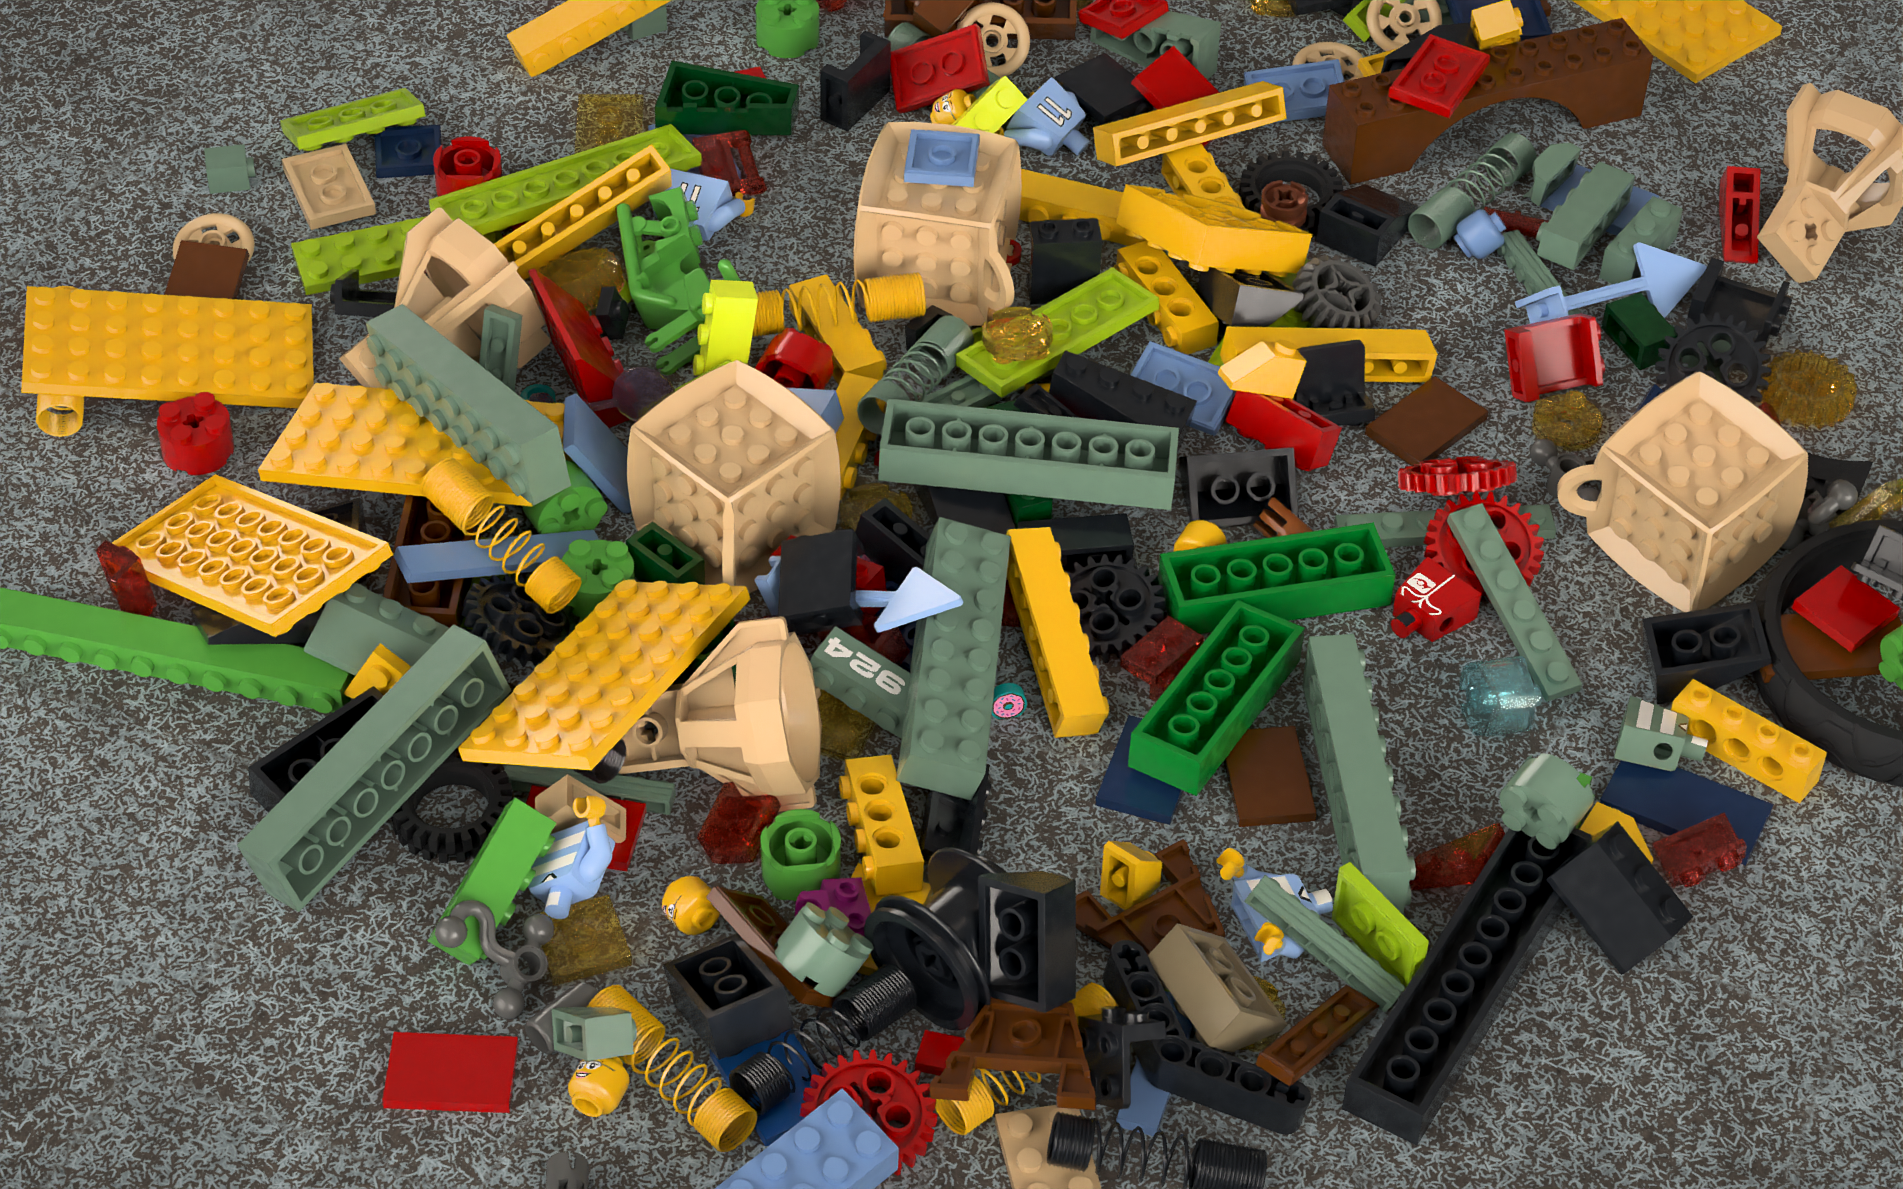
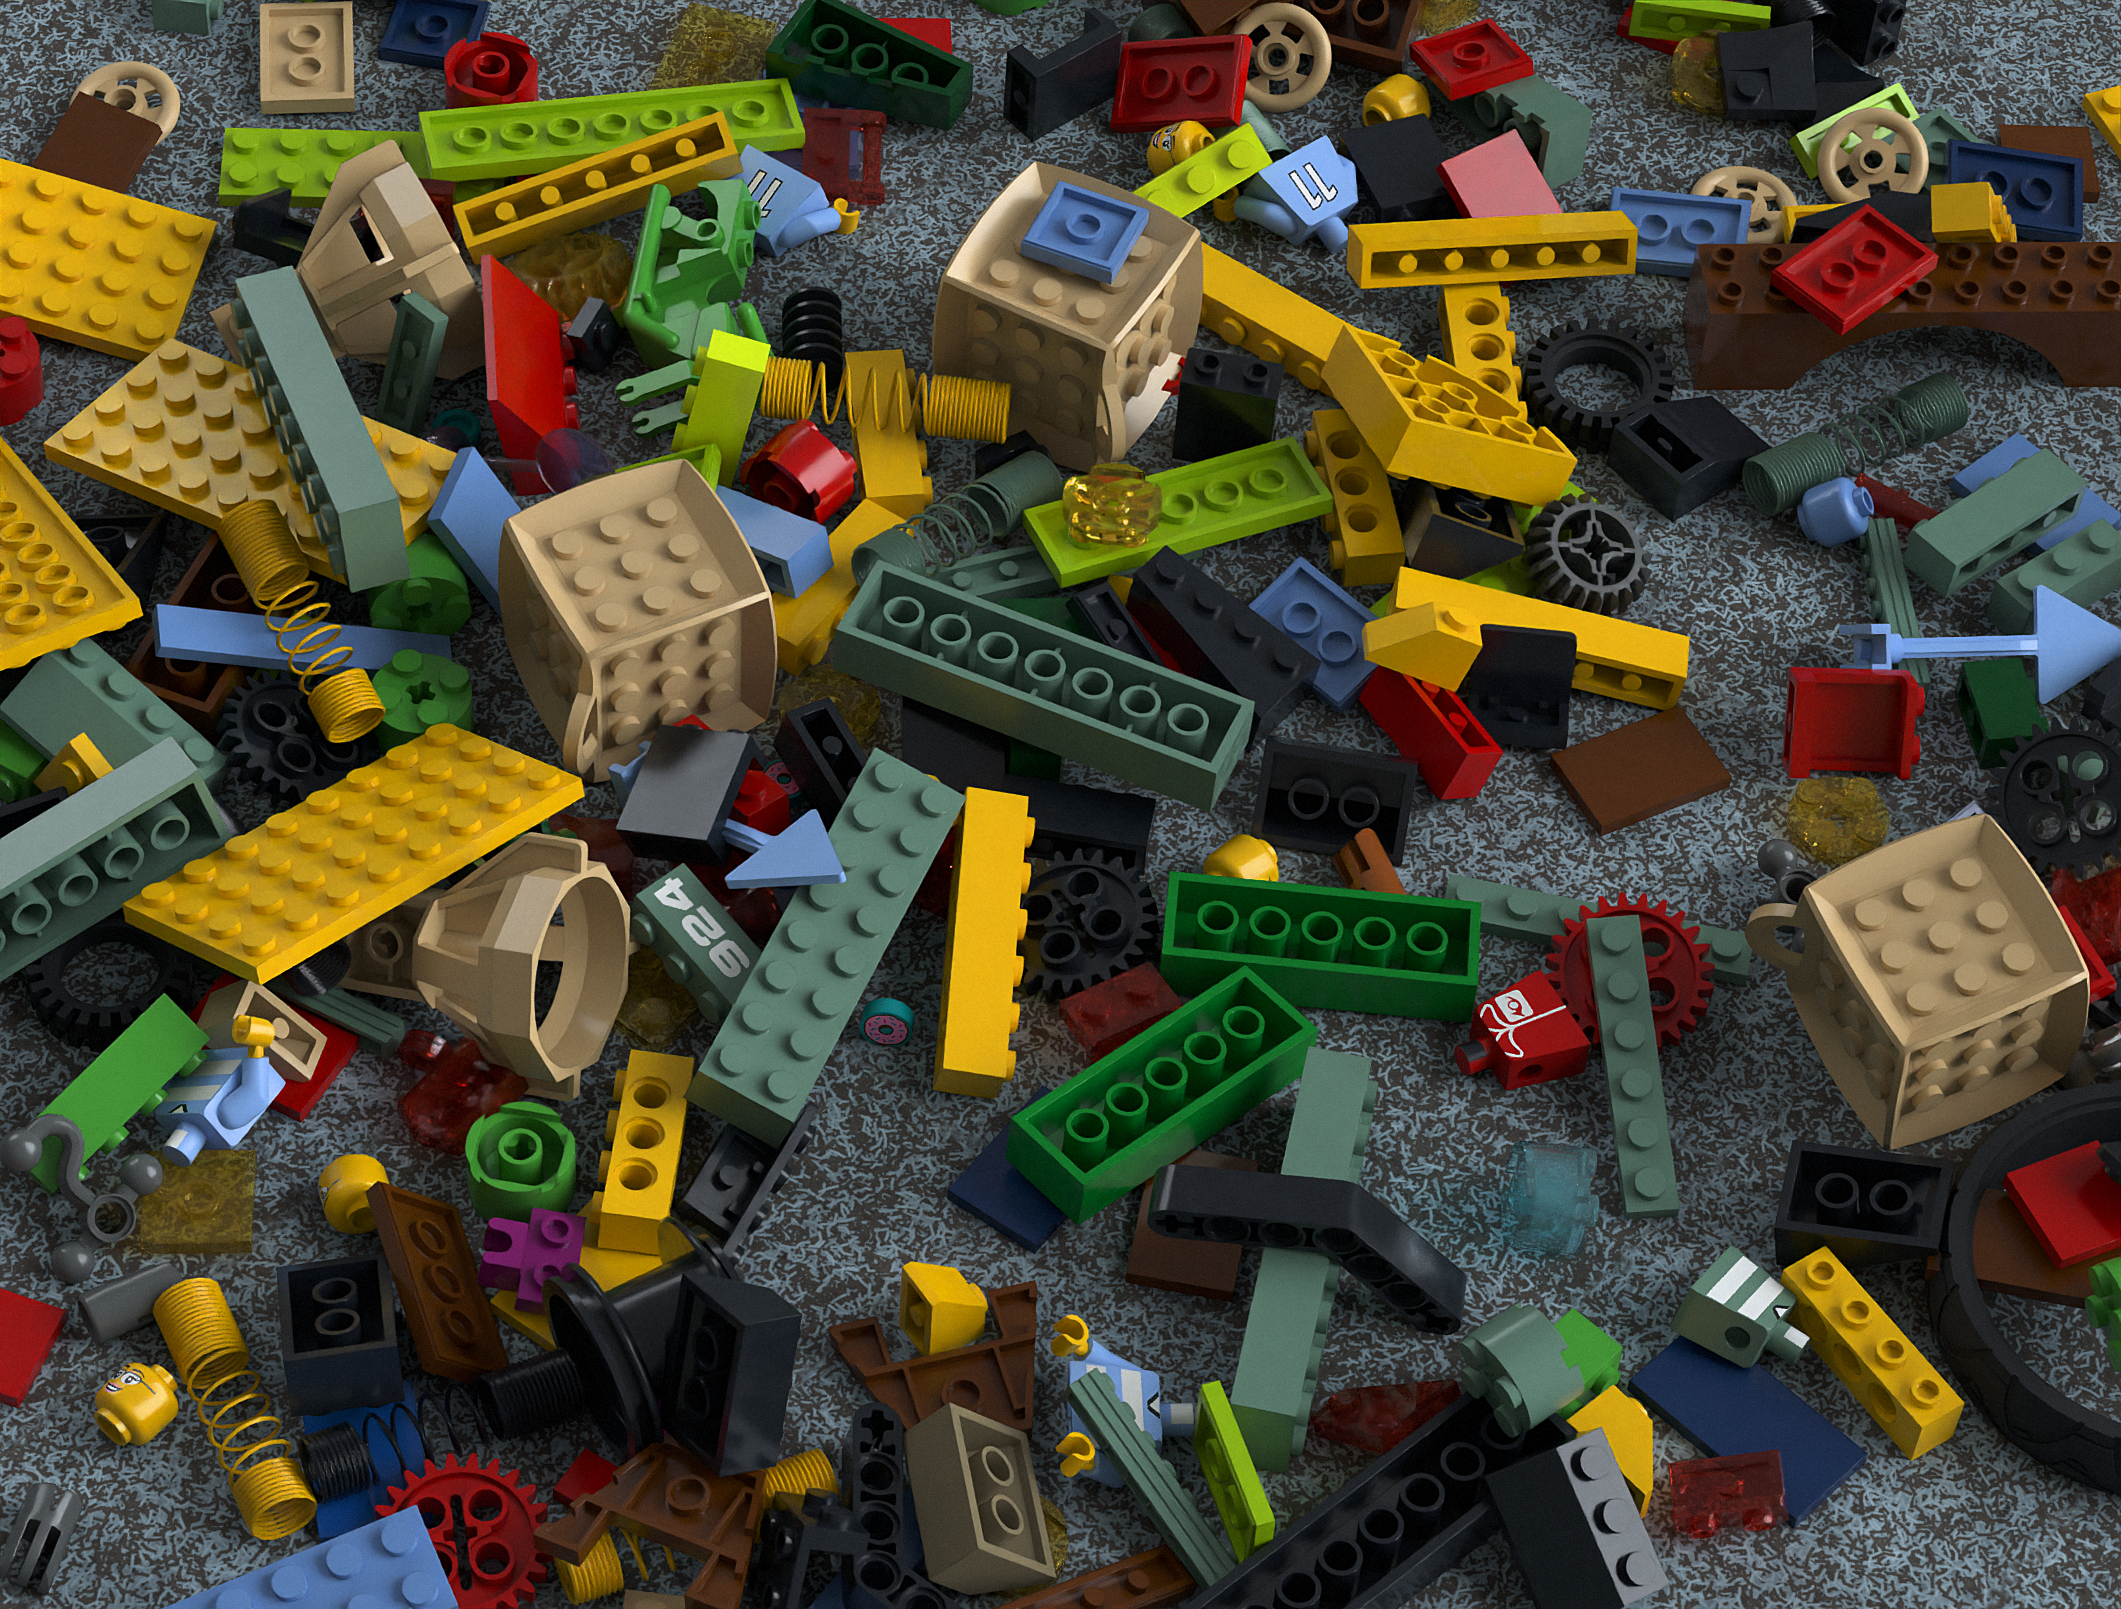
camera: 15 degrees right, 5 degrees up
(593, 1032) = (147, 1336): sand green slope -> none
(664, 558) = (516, 707): dark green brick -> none
(696, 800) = (422, 1049): none -> clear red tile
(757, 267) = (814, 332): none -> black piece
(822, 948) = (480, 1306): sand green brick -> none
(1079, 49) = (1395, 99): none -> yellow head
(1284, 203) = (1568, 403): copper wheel -> none
(1364, 740) = (1314, 1217): none -> black beam
(1457, 475) = (1661, 869): red gear -> none
(1552, 170) = (1978, 443): sand green slope -> none

